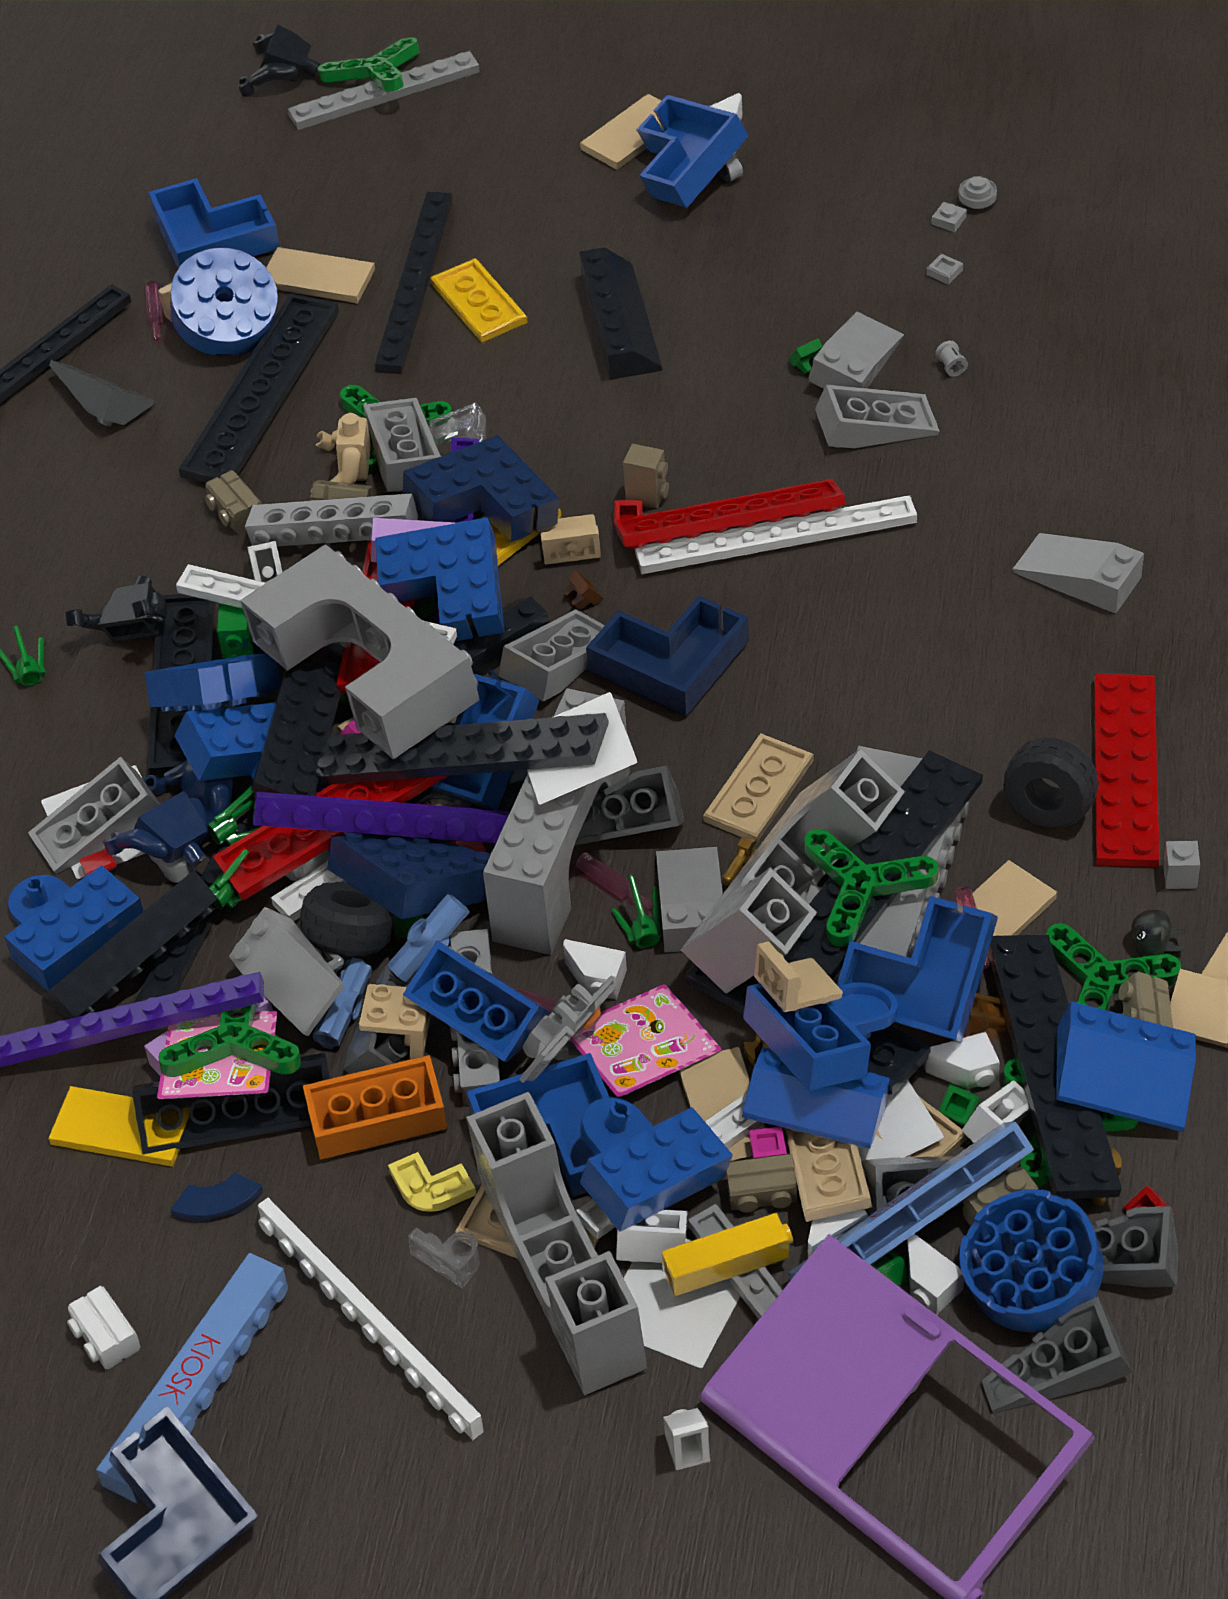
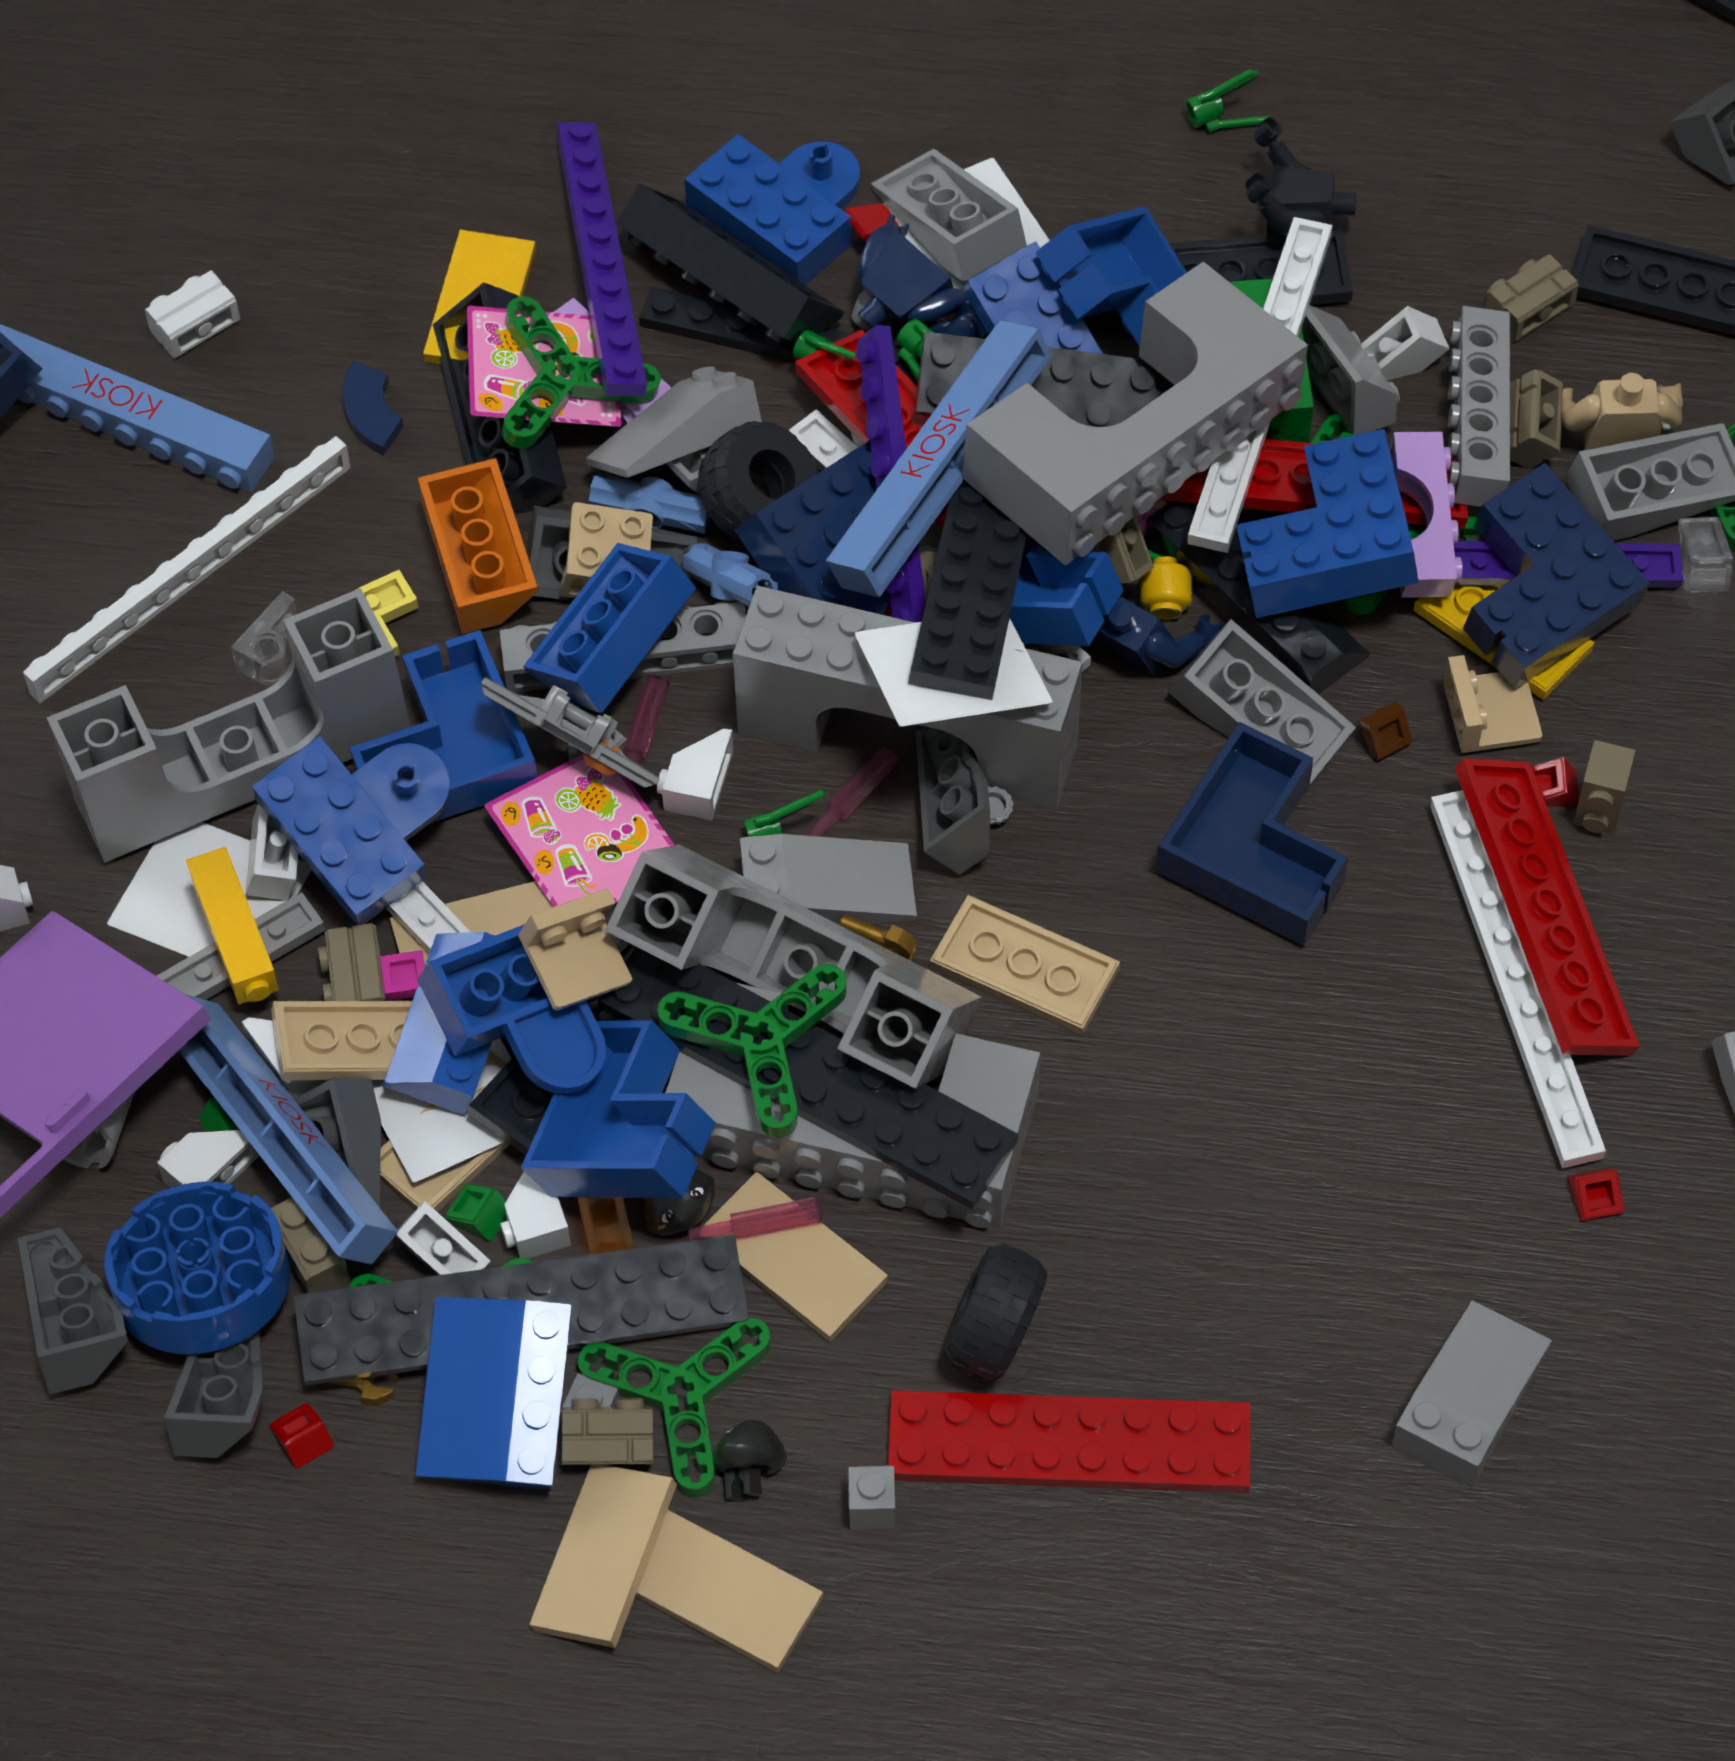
camera: 85 degrees right, 10 degrees up
(376, 769) = (933, 462): none -> medium blue brick
(932, 507) = (1597, 1193): none -> red slope

